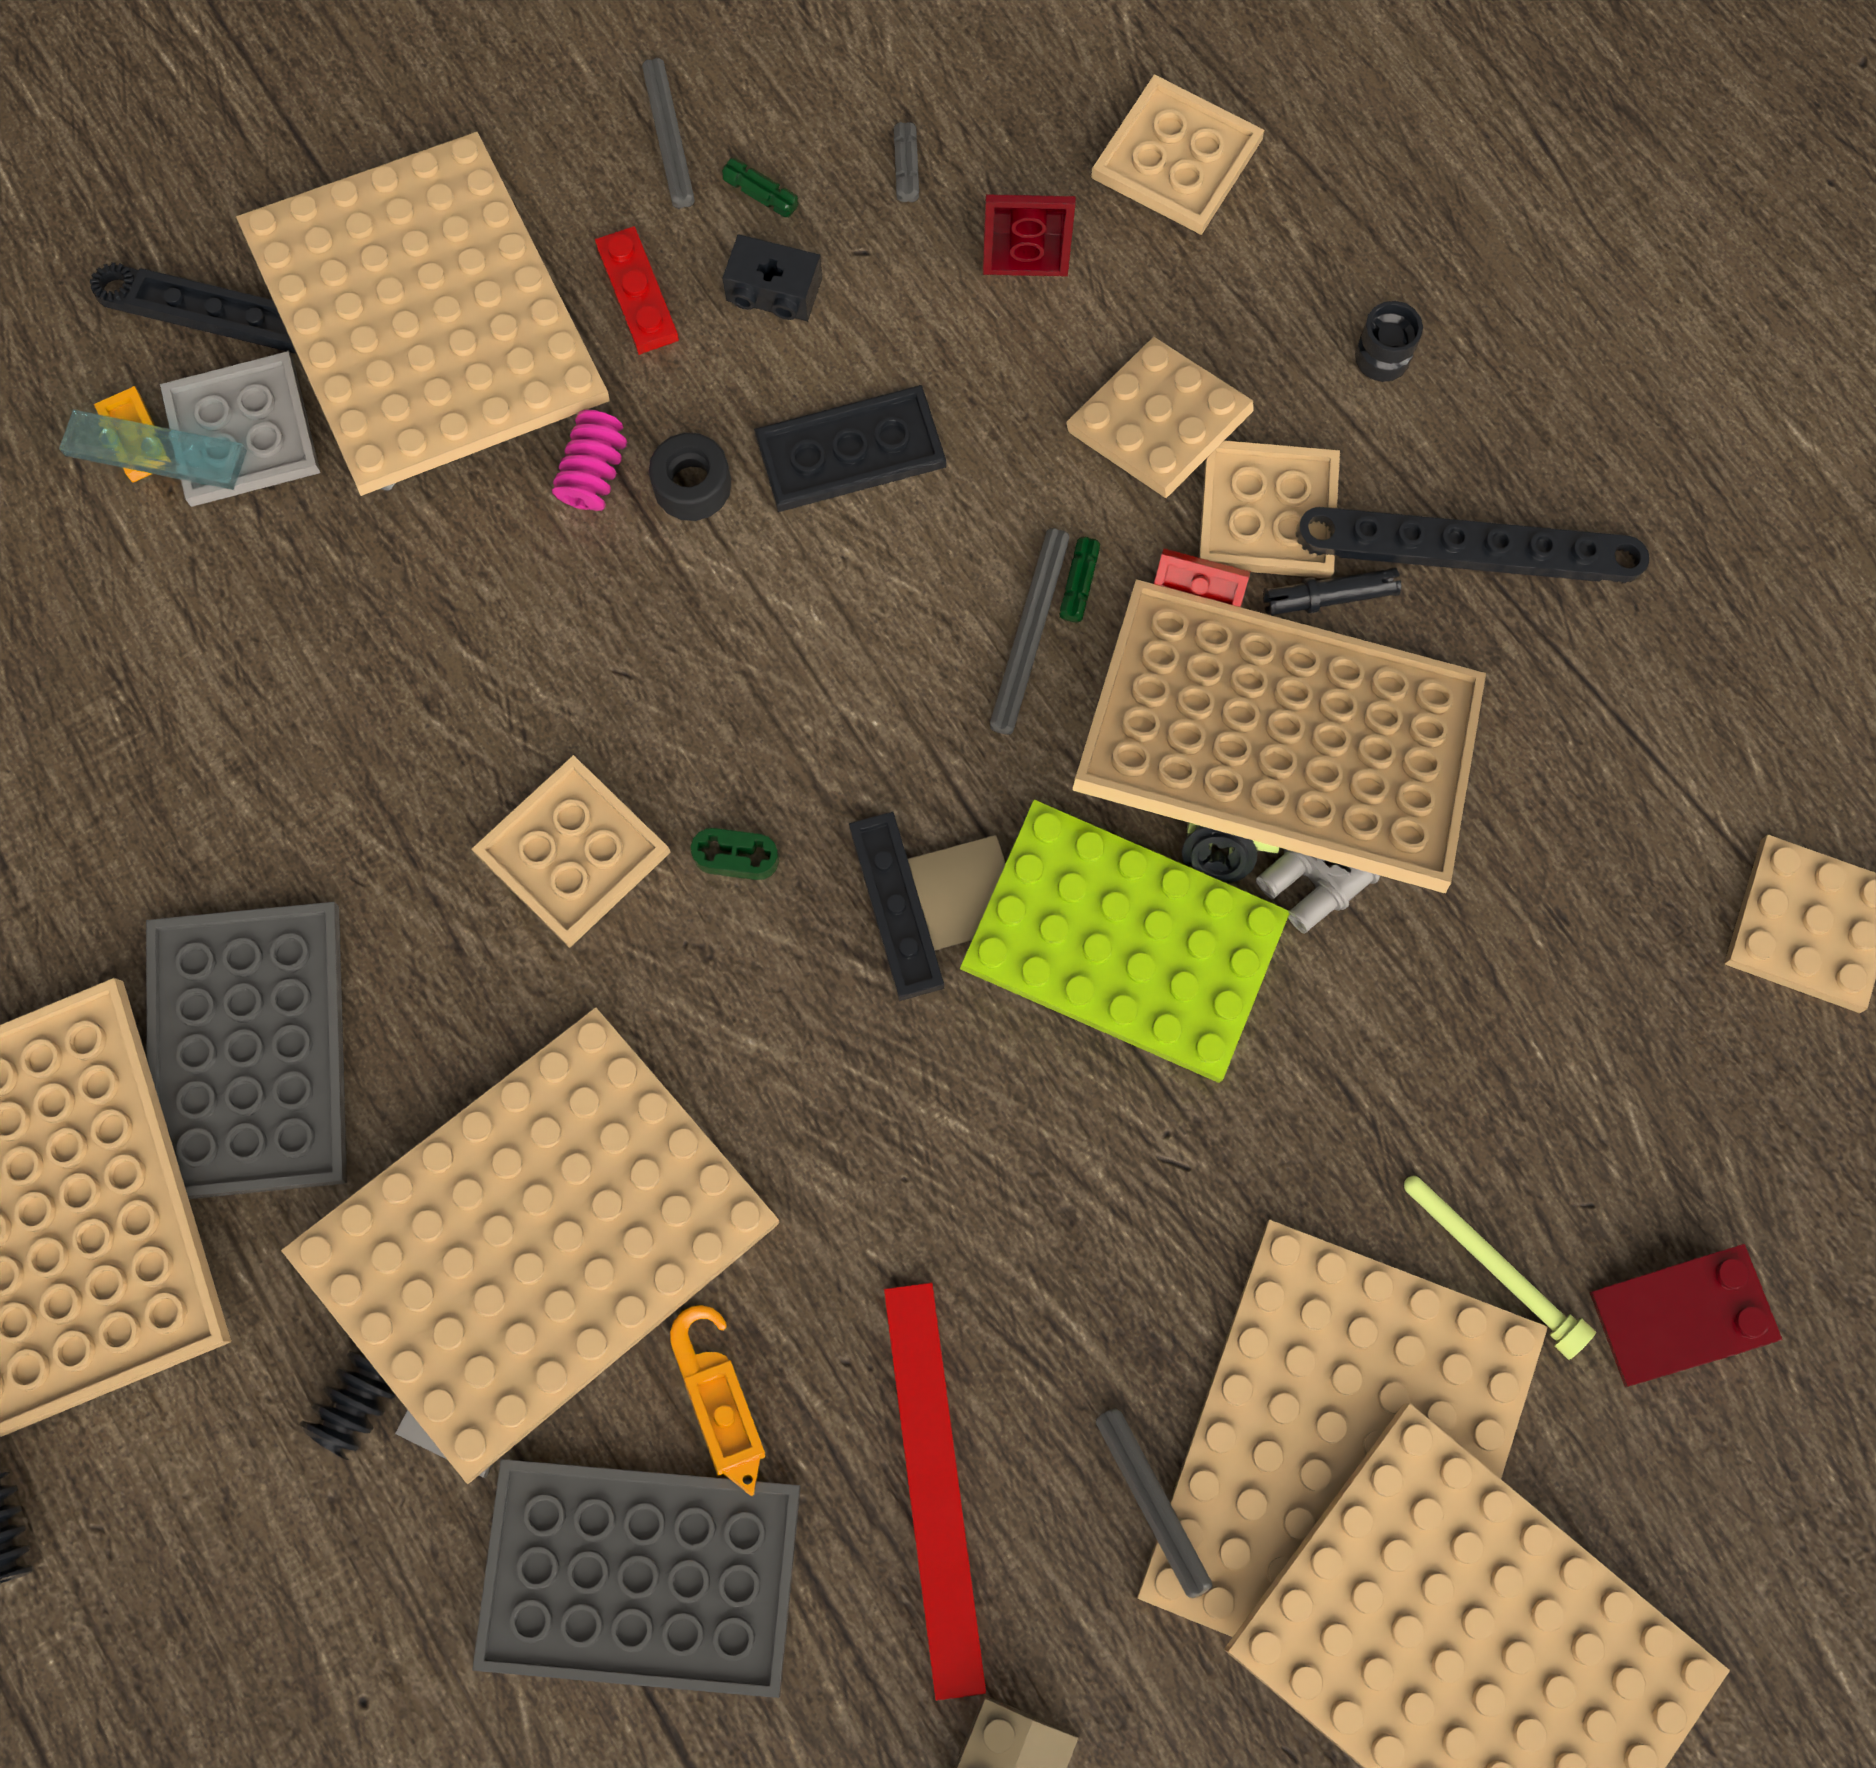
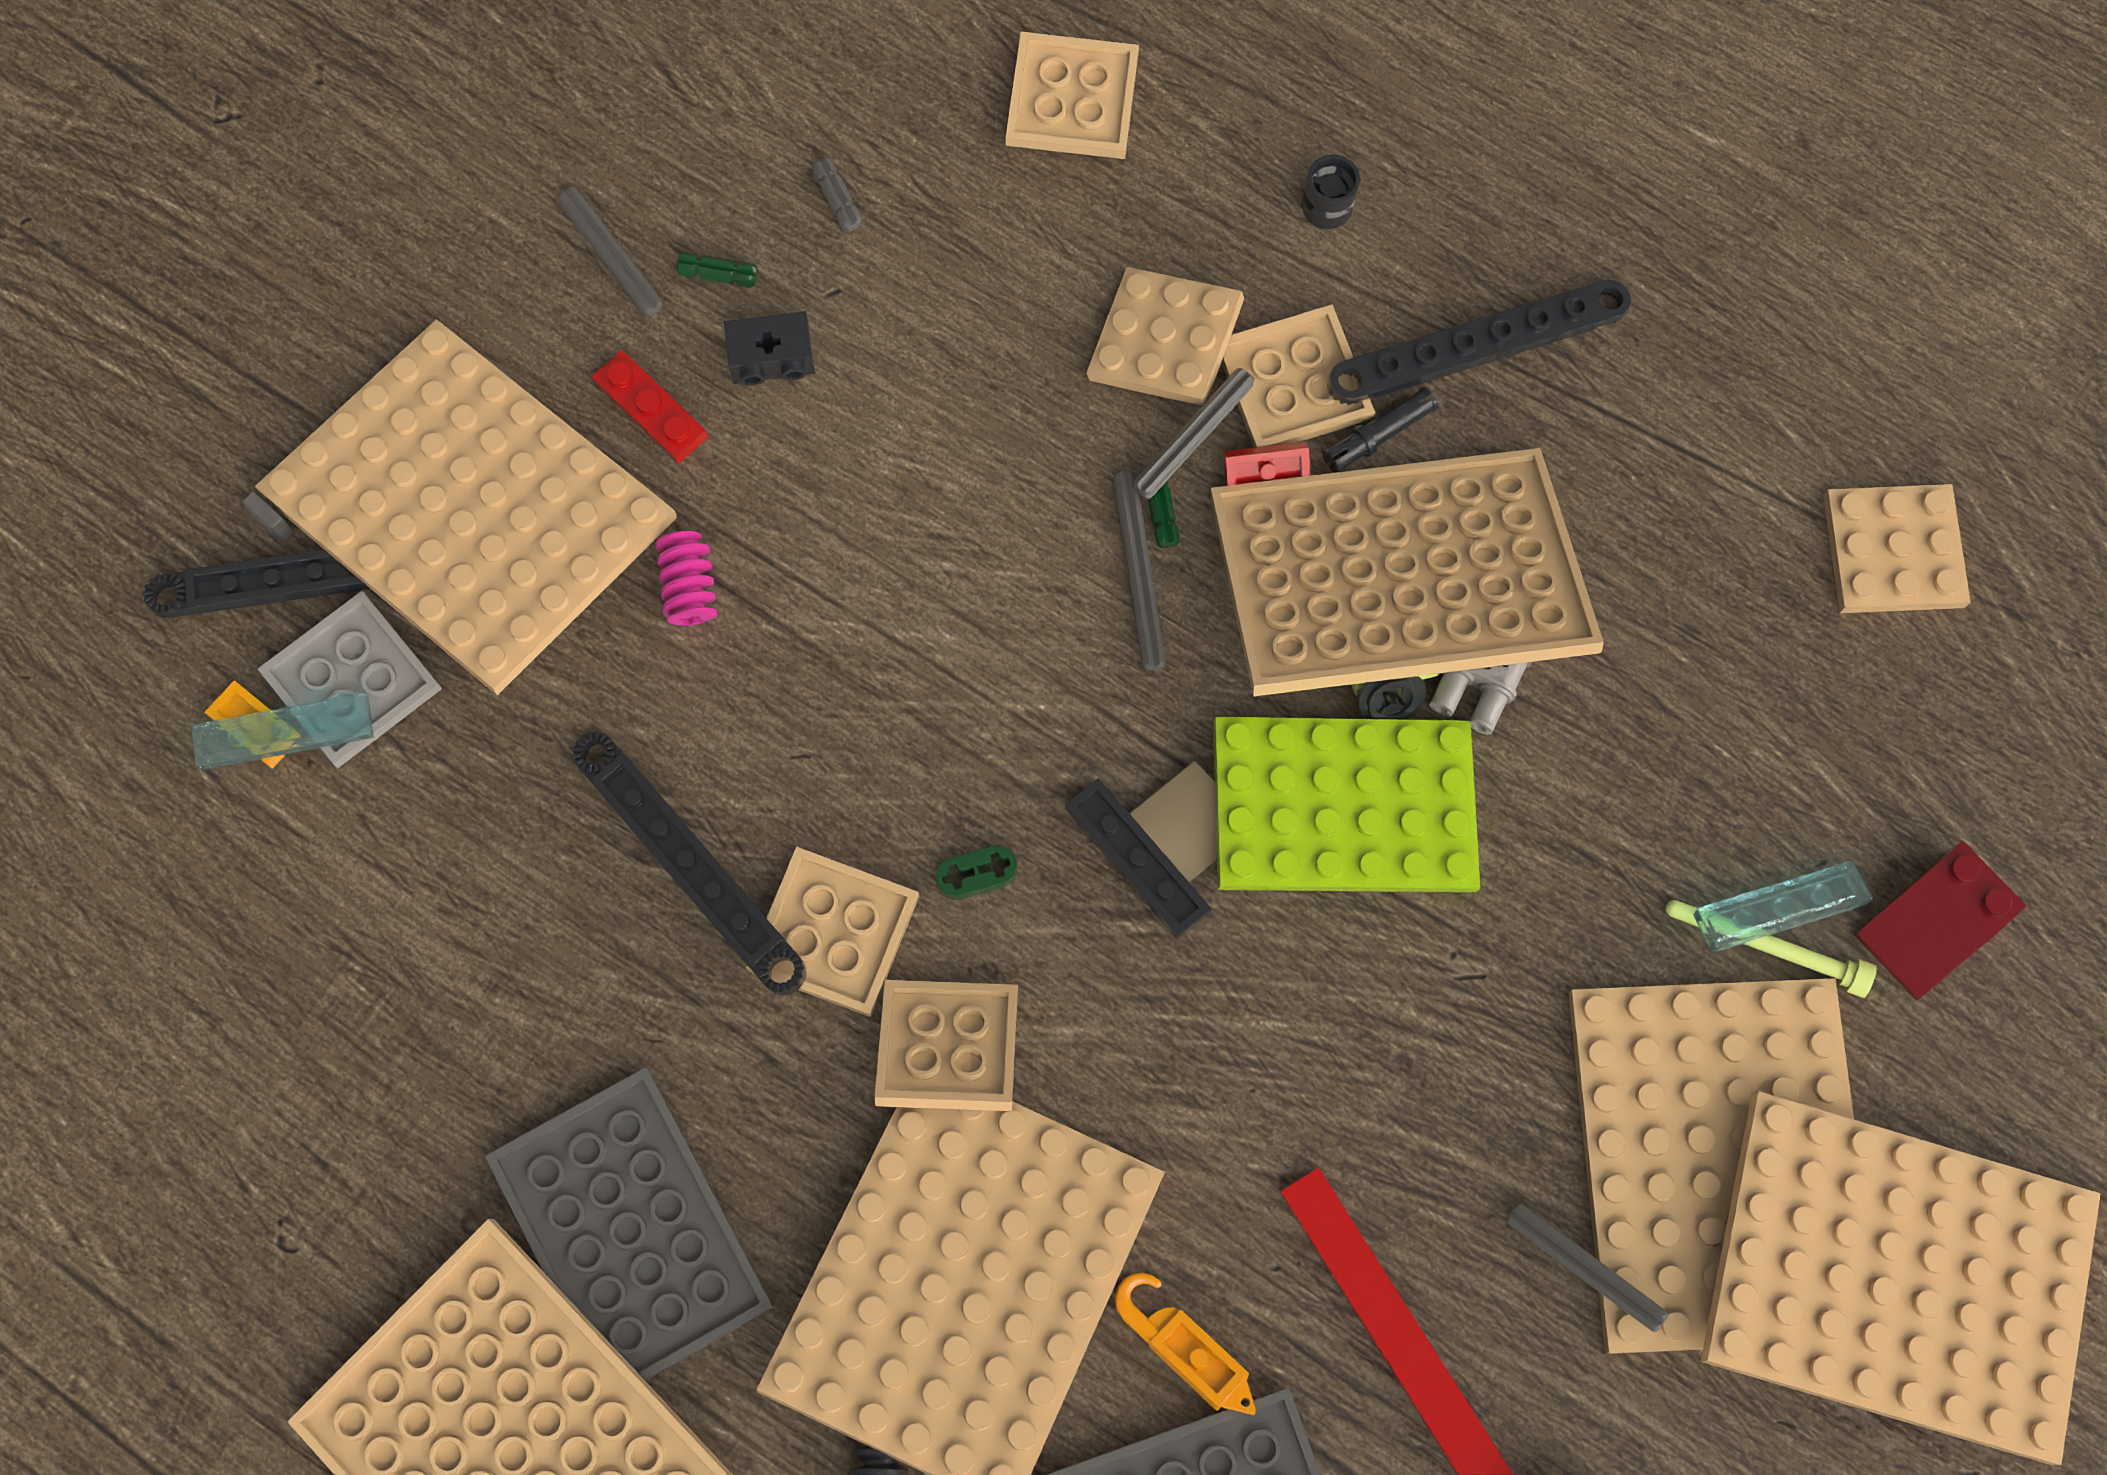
camera: 25 degrees left, 0 degrees up
(236, 251) = (267, 517): none -> flat silver tile
(465, 729) = (689, 863): none -> black plate
(623, 1004) = (947, 1045): none -> tan plate
(683, 452) = (776, 531): black tyre -> none
(850, 448) = (907, 472): black tile -> none
(1028, 235) = (980, 222): dark red slope -> none
(1142, 518) = (1193, 433): none -> dark grey axle
(1525, 1230) = (1782, 906): none -> clear light blue tile

